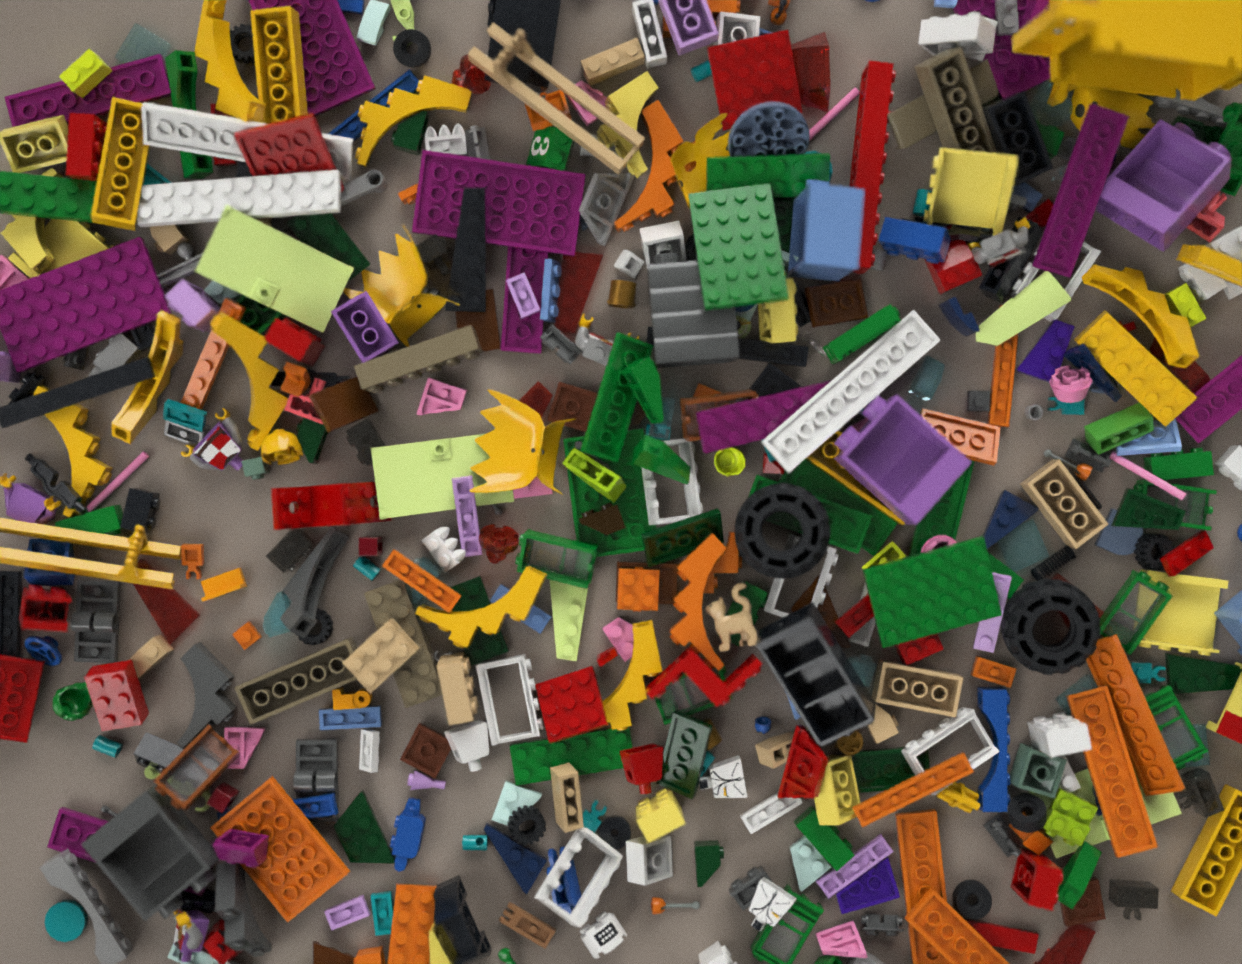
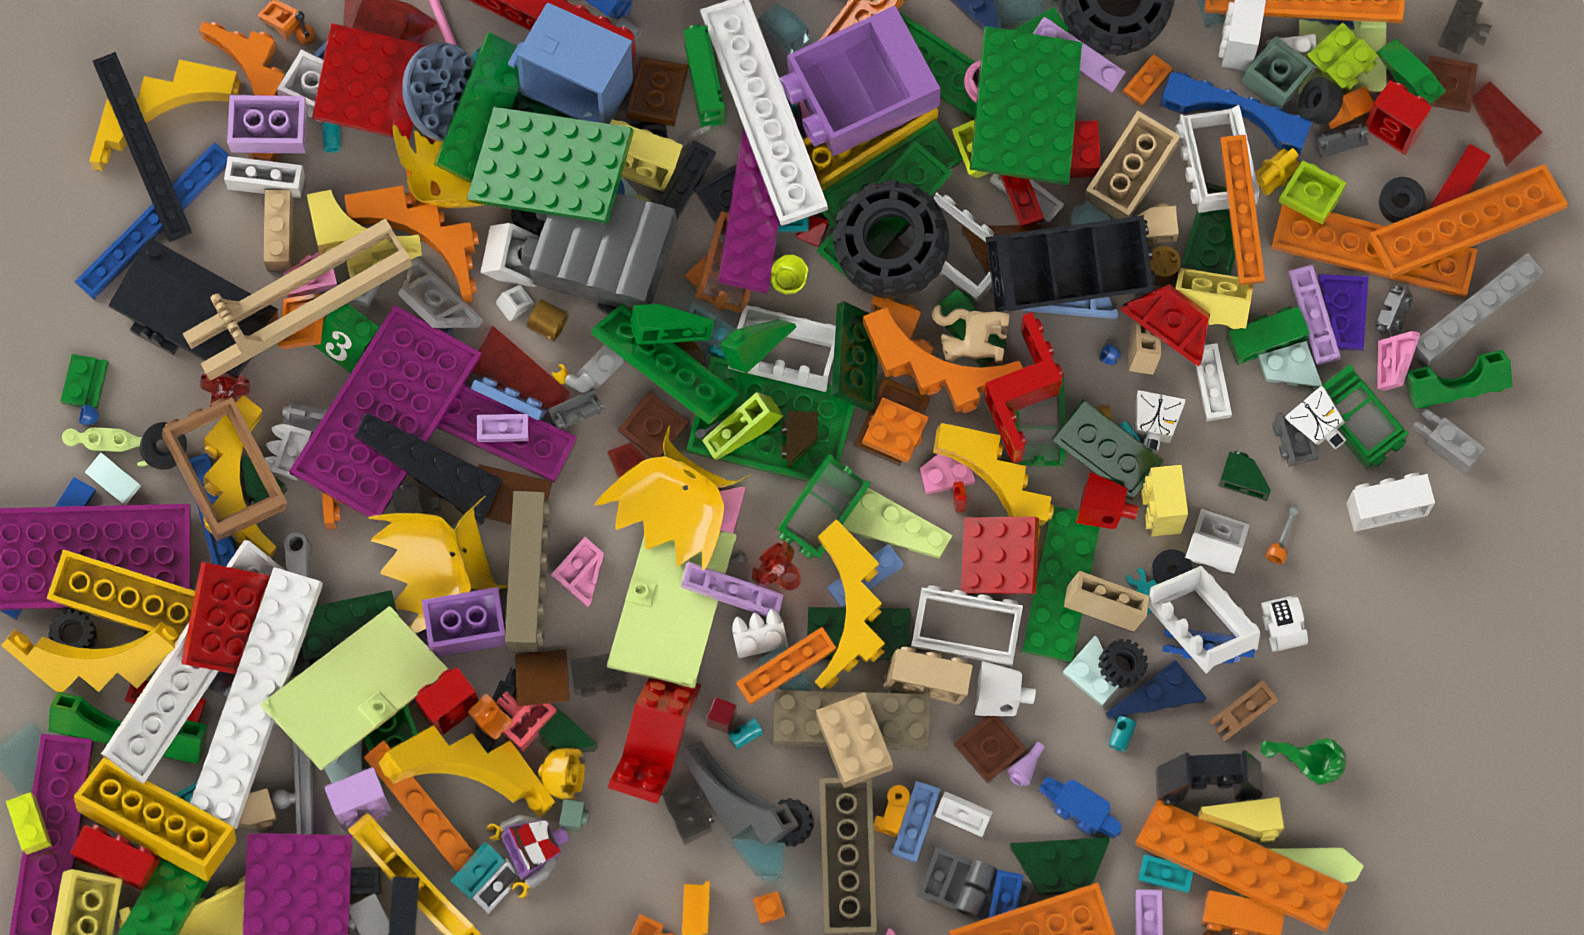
camera: 65 degrees left, 15 degrees down
(356, 115) = (248, 516): none -> medium nougat door
(951, 832) = (1313, 192): none -> lime plate

